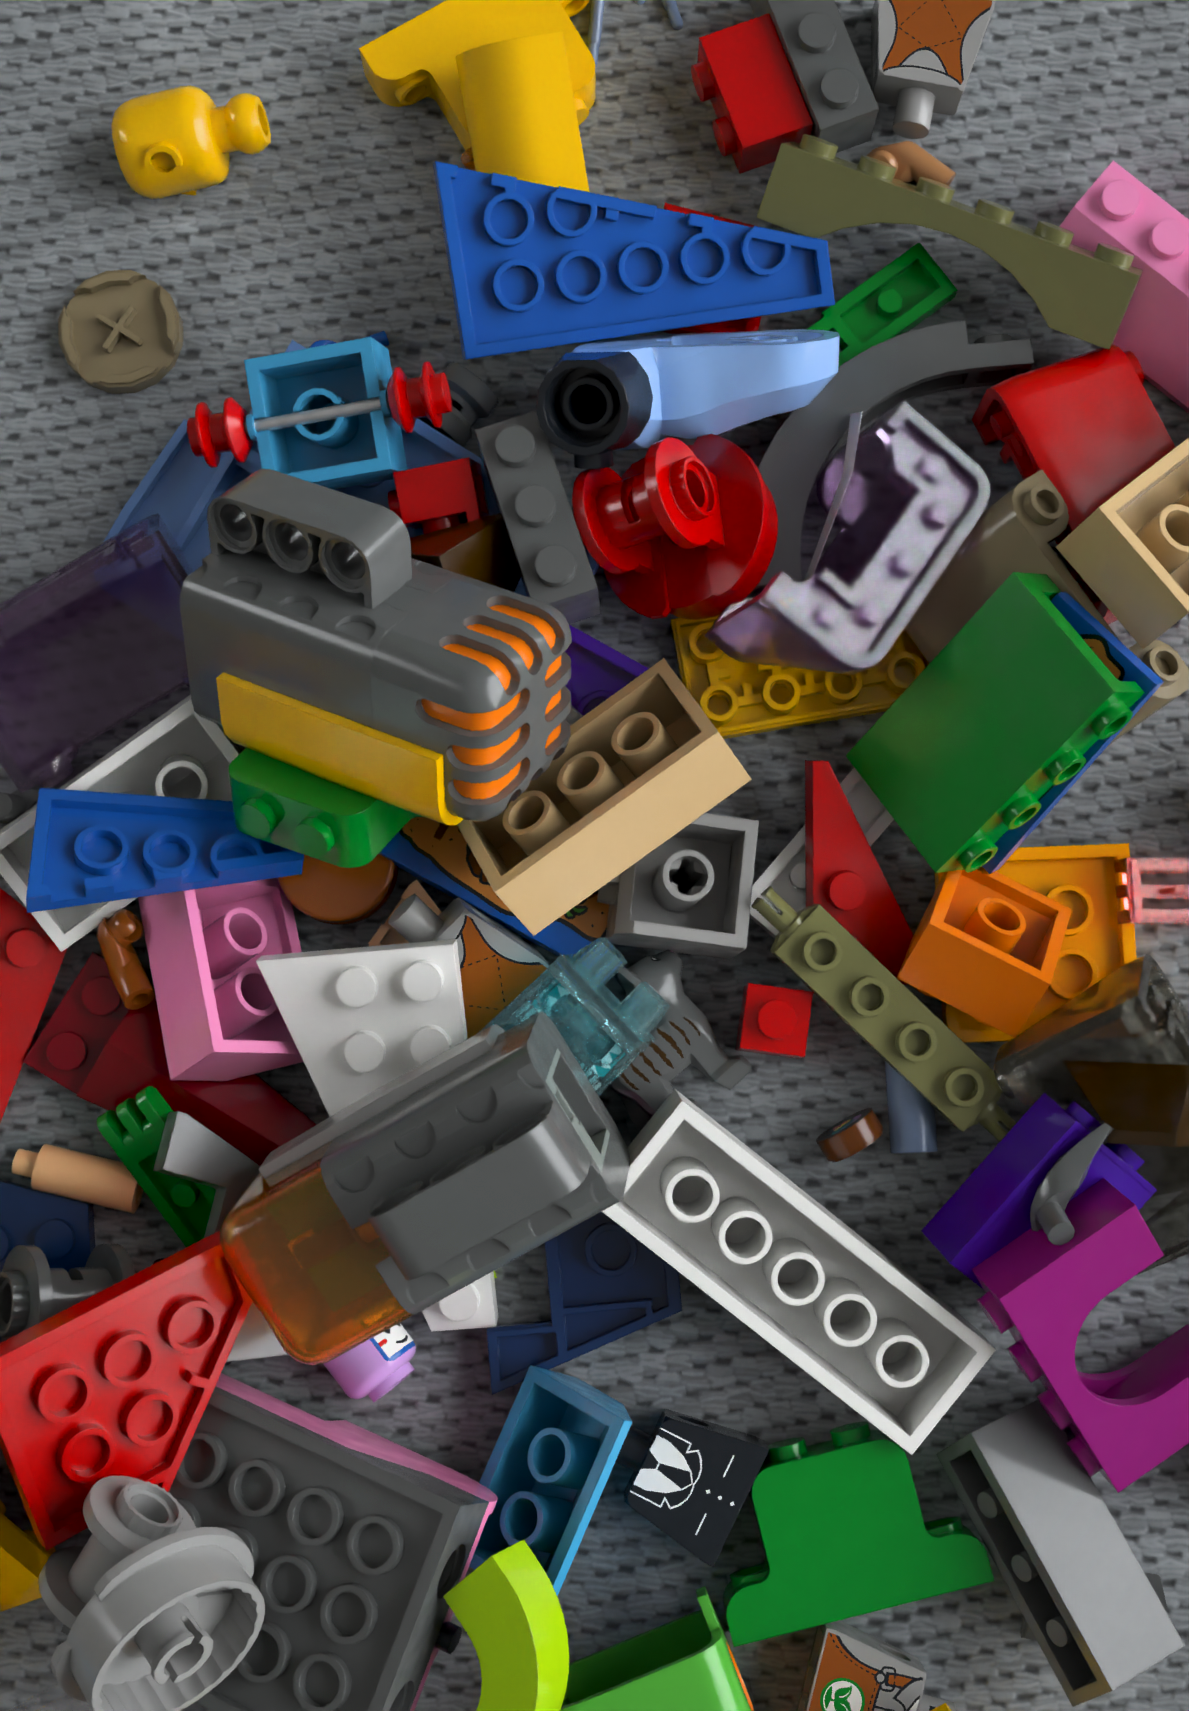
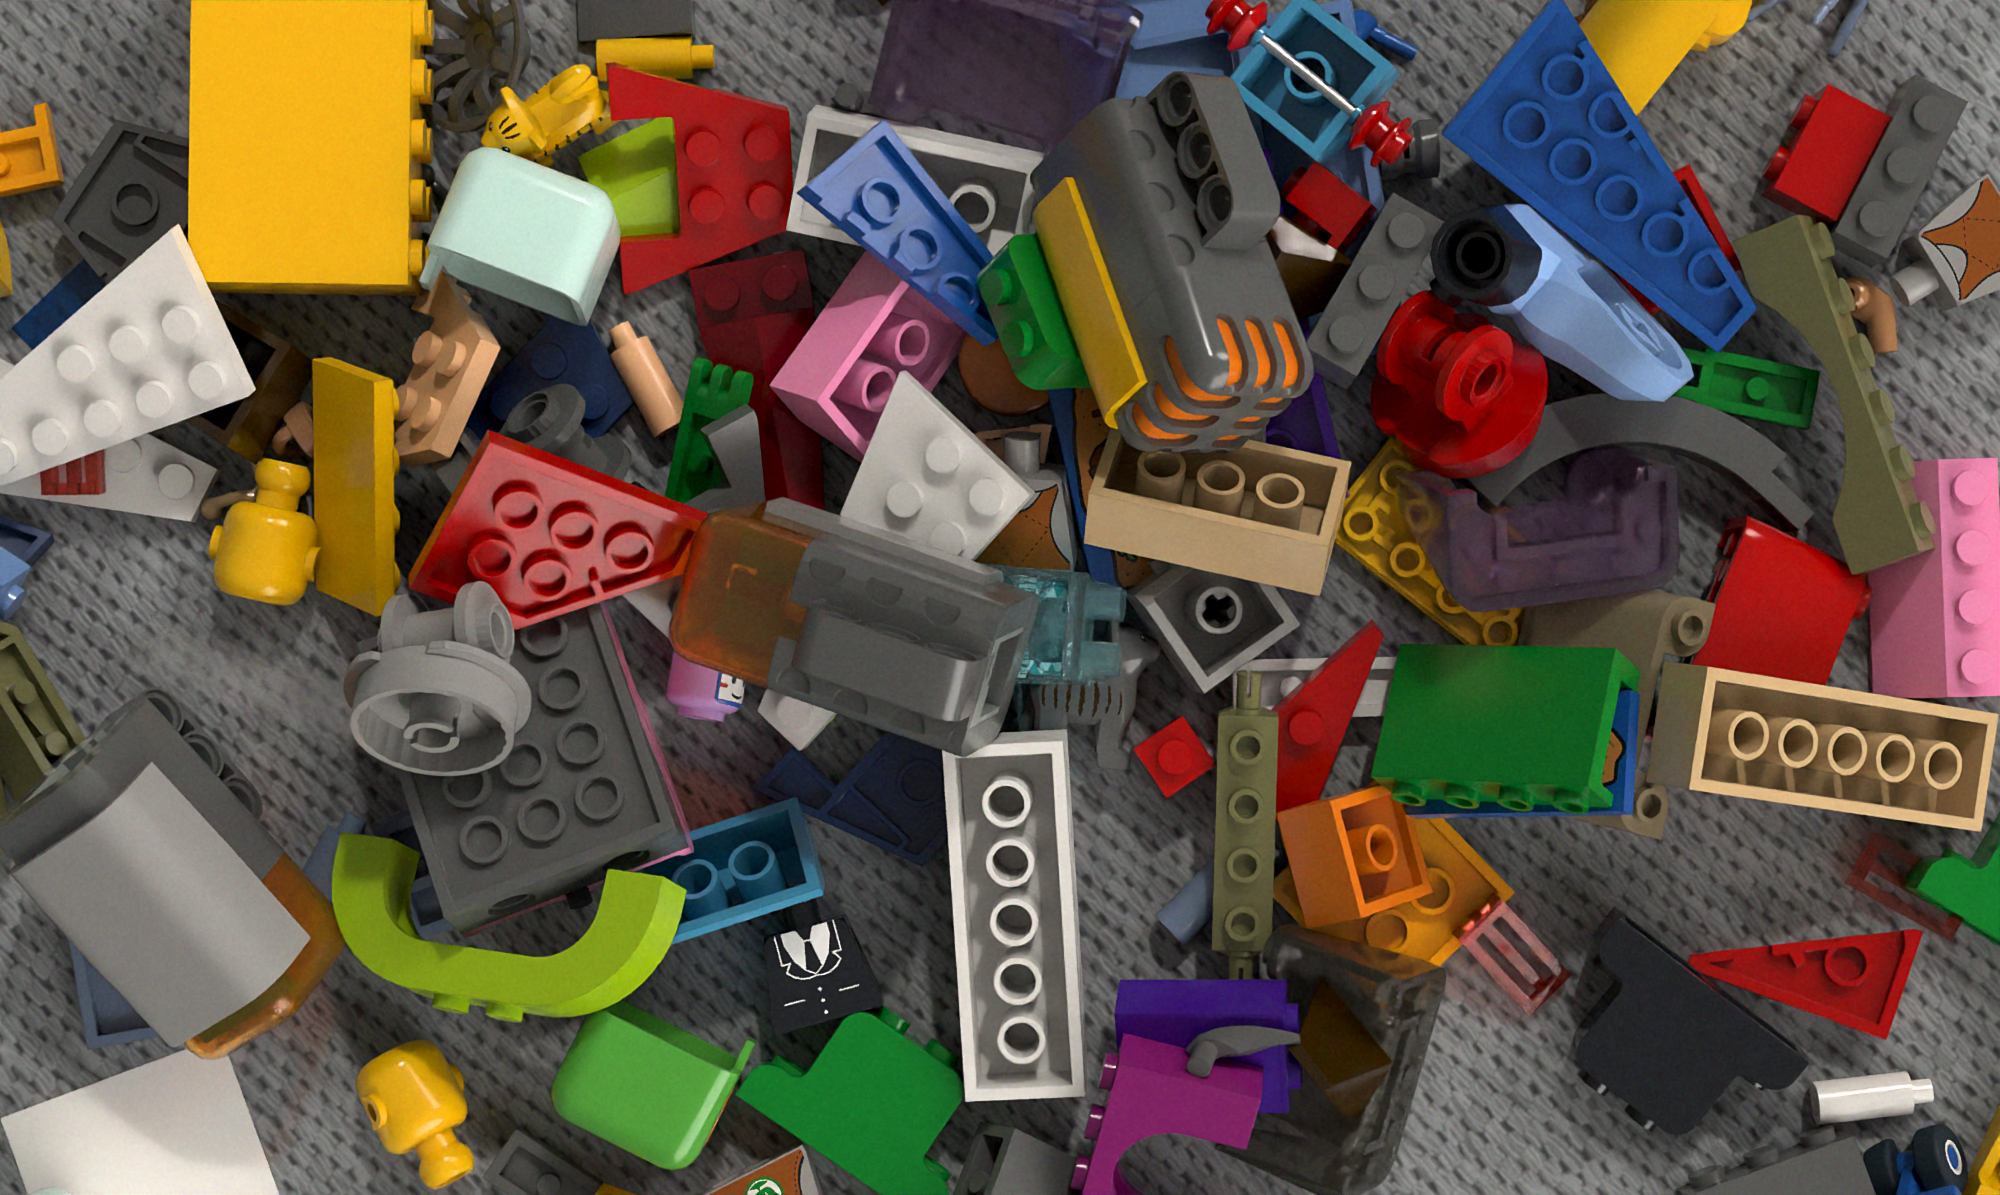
camera: 40 degrees right, 5 degrees up
(121, 959) = (815, 278): dark orange arm -> none
(850, 1135) = (1142, 877): reddish brown tile -> none
(851, 447) = (1608, 465): white sticker -> none

